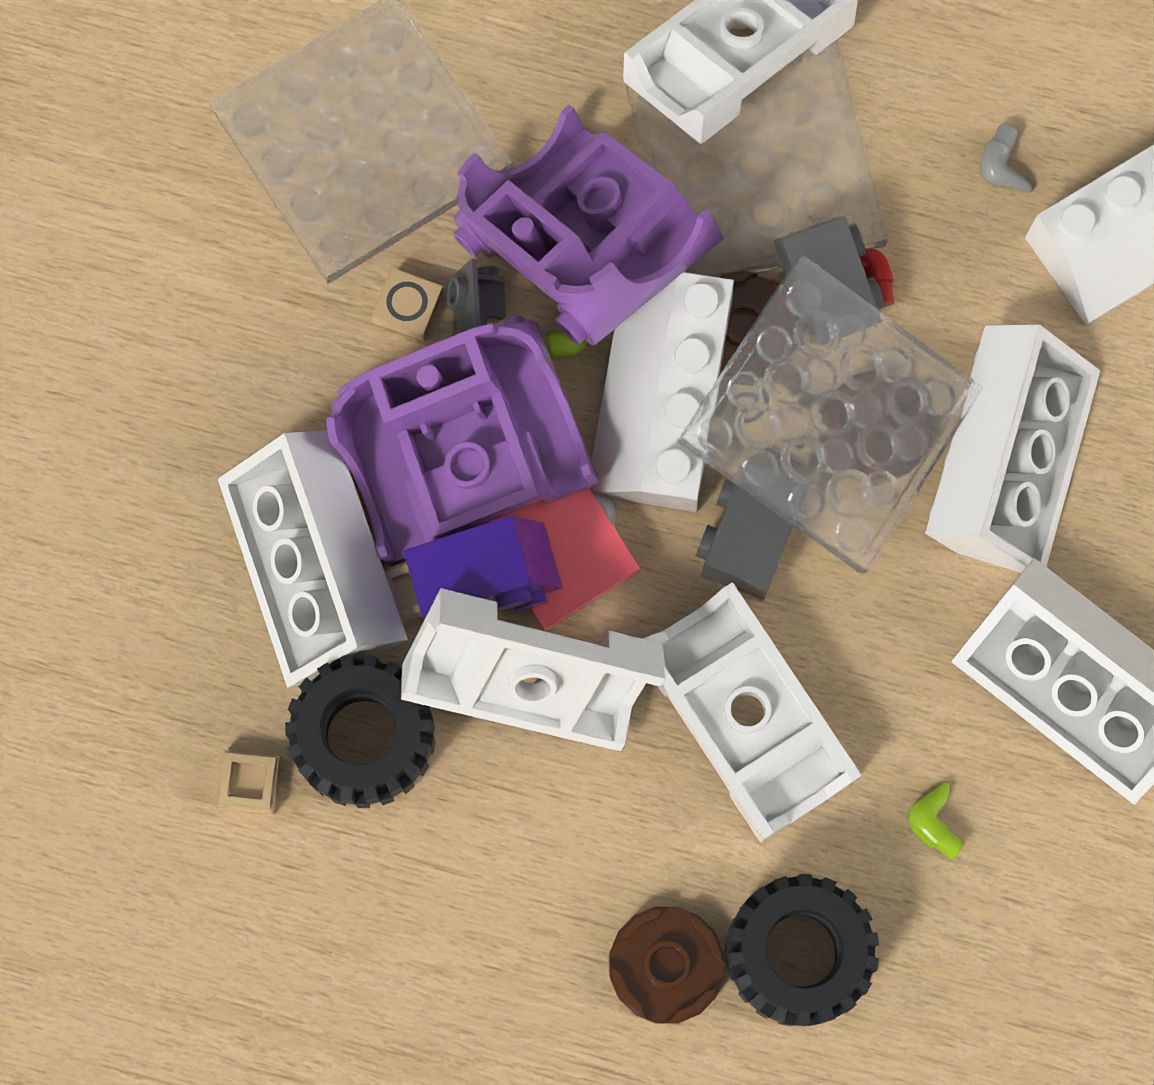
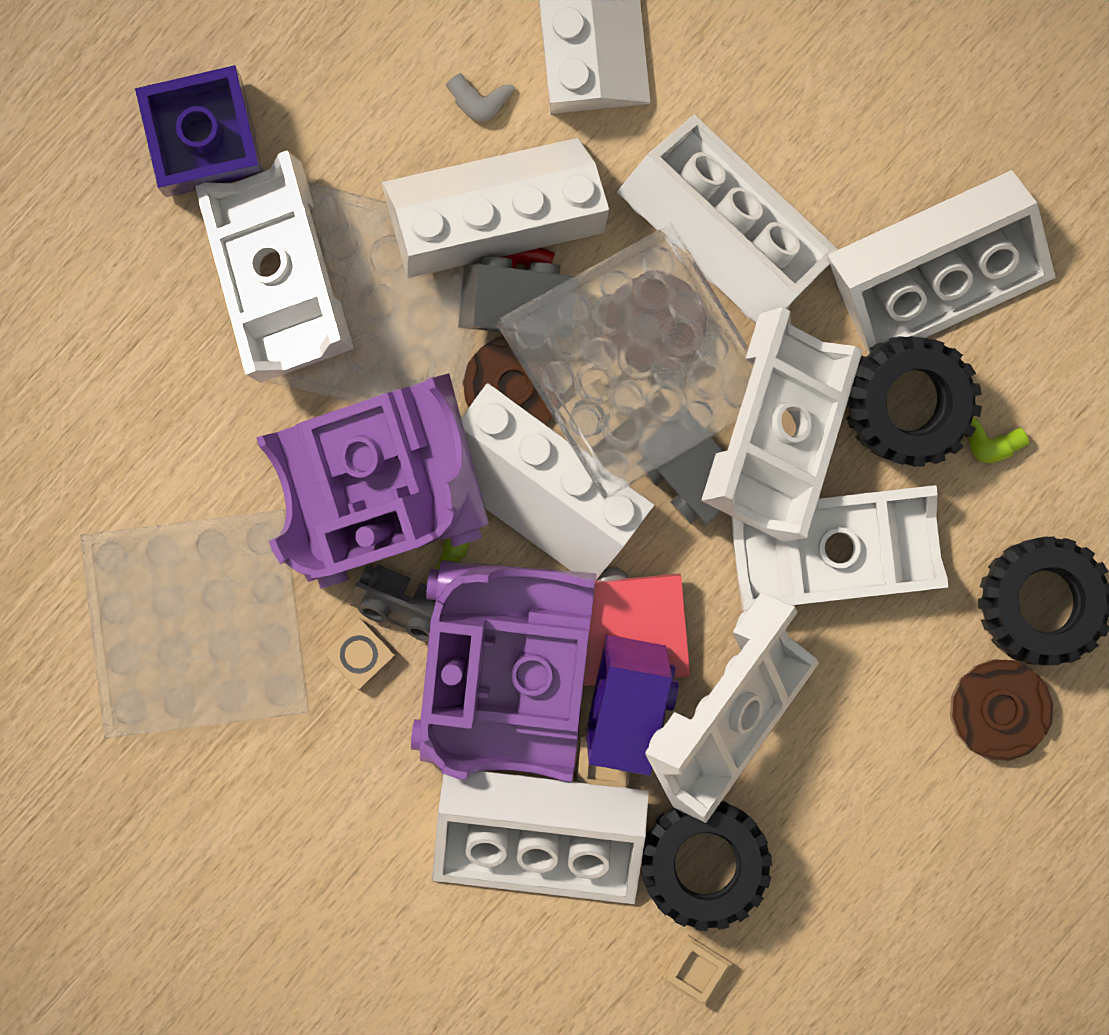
camera: 65 degrees left, 10 degrees up
(785, 586) = (765, 472): none -> white piece
(905, 218) = (496, 206): none -> white slope
(985, 701) = (954, 401): none -> black tyre

